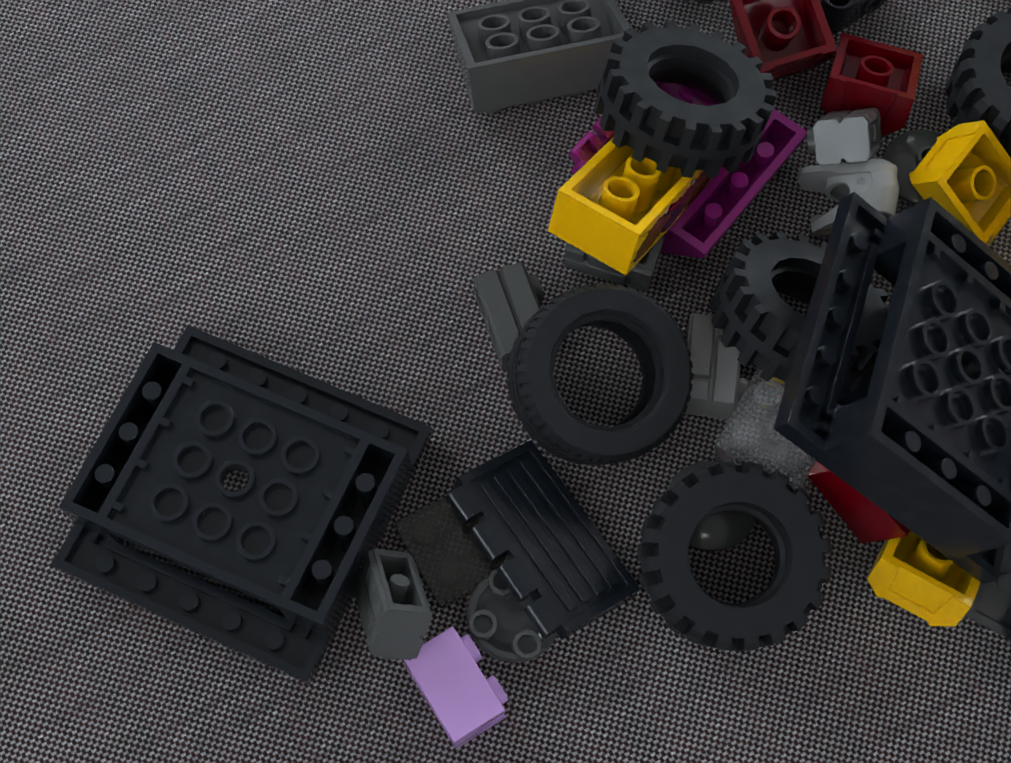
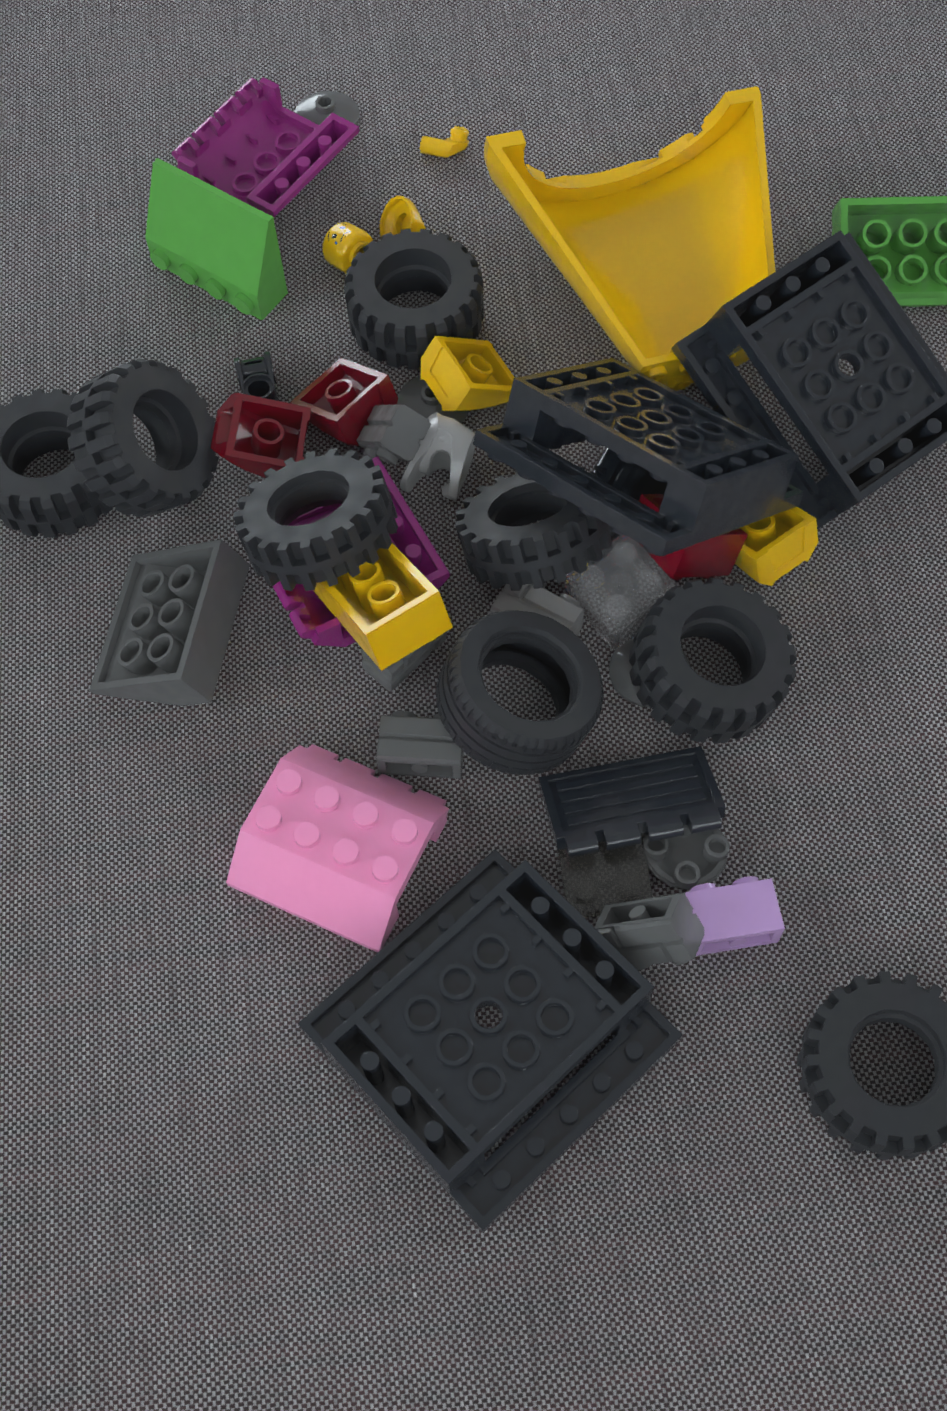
camera: 65 degrees left, 5 degrees down
(386, 282) = (335, 843): none -> bright pink slope

